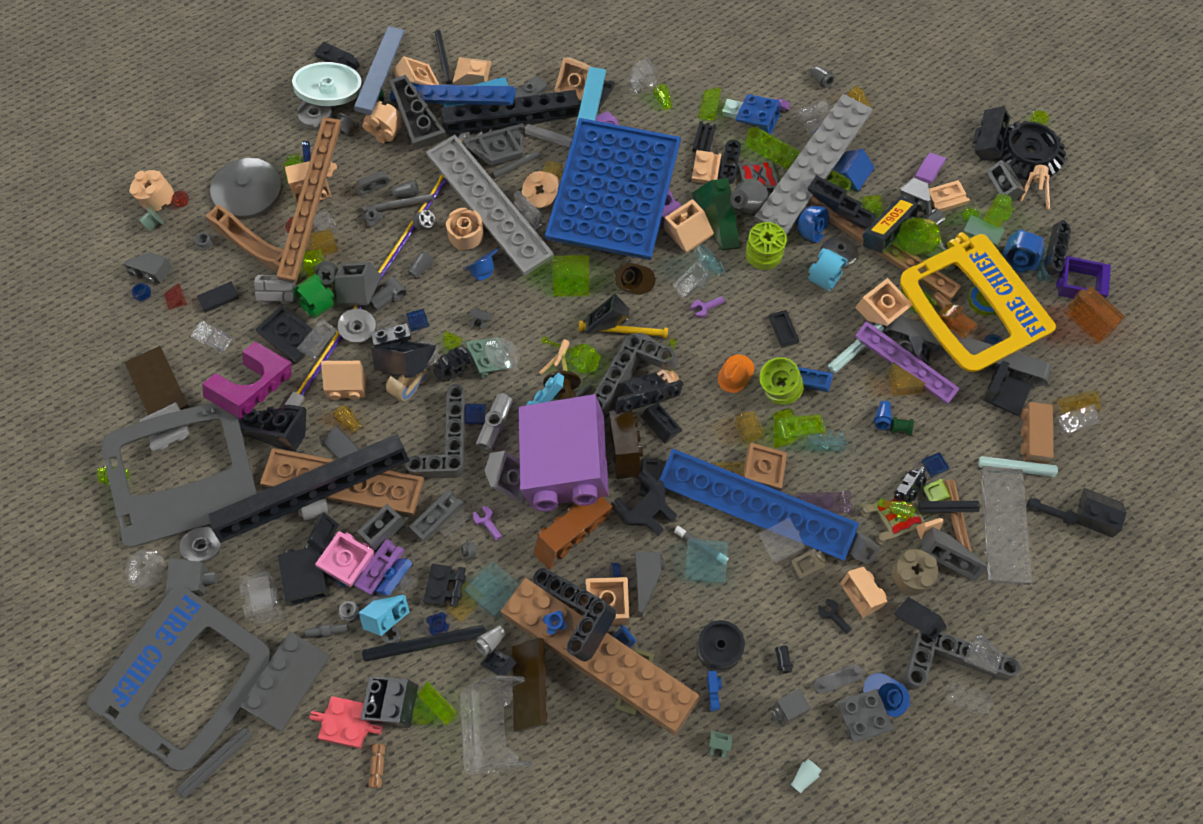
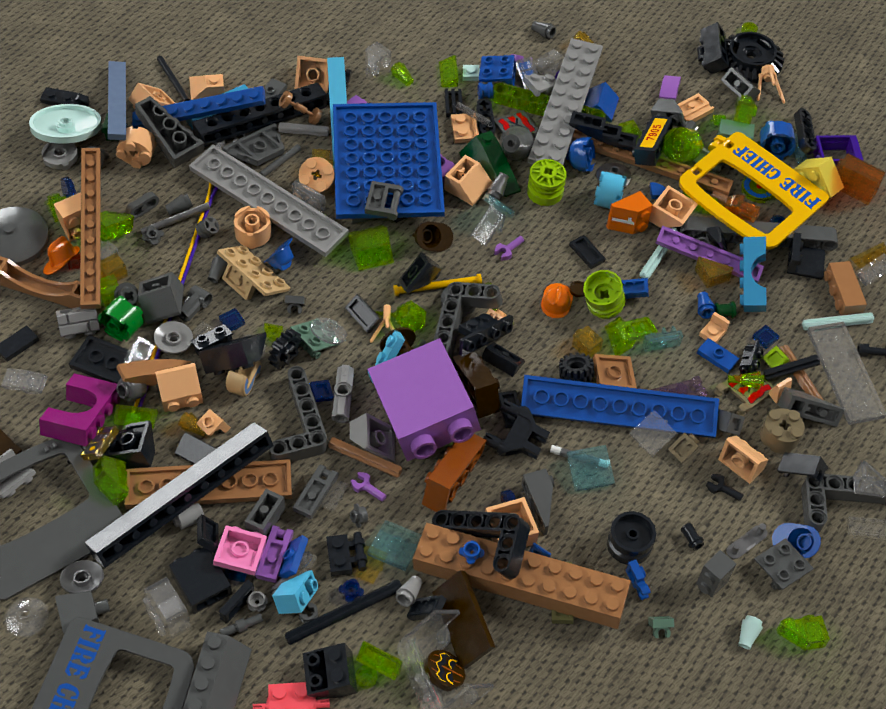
camera: 20 degrees left, 10 degrees down
(254, 418) = (100, 443): none -> clear yellow tile
(254, 454) = (111, 478): none -> clear neon green slope
(279, 216) = (59, 254): none -> orange piece
(298, 395) = (130, 414): none -> clear neon green slope
(301, 368) = (131, 391): none -> dark grey head
(311, 356) = (144, 370): none -> medium nougat slope
(328, 607) = (236, 602): none -> black tile
(337, 198) = (115, 224): none -> clear neon green slope
(364, 421) = (212, 422): none -> light nougat bracket
(447, 277) = (248, 273): none -> tan bracket
(494, 731) = (445, 670): none -> dark brown tile
(506, 502) = (365, 457): none -> medium nougat axle
(536, 103) = (286, 99): none -> medium nougat wheel
(541, 343) = (363, 313): none -> tile
(588, 229) = (377, 199): none -> dark grey plate
(716, 239) = (498, 186): none -> flat silver cone
(719, 159) = (468, 113): none -> light grey piece
(731, 445) = (576, 367): none -> black tyre
(739, 131) = (485, 90): none -> blue wheel
(758, 364) = (576, 289): none -> dark brown piece
(789, 122) = (526, 67): none -> clear tile
(795, 136) = (539, 83): none -> light grey wing
(838, 300) = (630, 214): none -> orange slope
(862, 794) = (805, 632): none -> clear neon green slope
(877, 277) = (656, 190): none -> blue tile
(878, 473) = (718, 355): none -> blue plate
(884, 444) = (715, 328): none -> light nougat bracket
(950, 373) = (753, 253): none -> dark azure arch
(1056, 300) = (822, 173): none -> light yellow brick

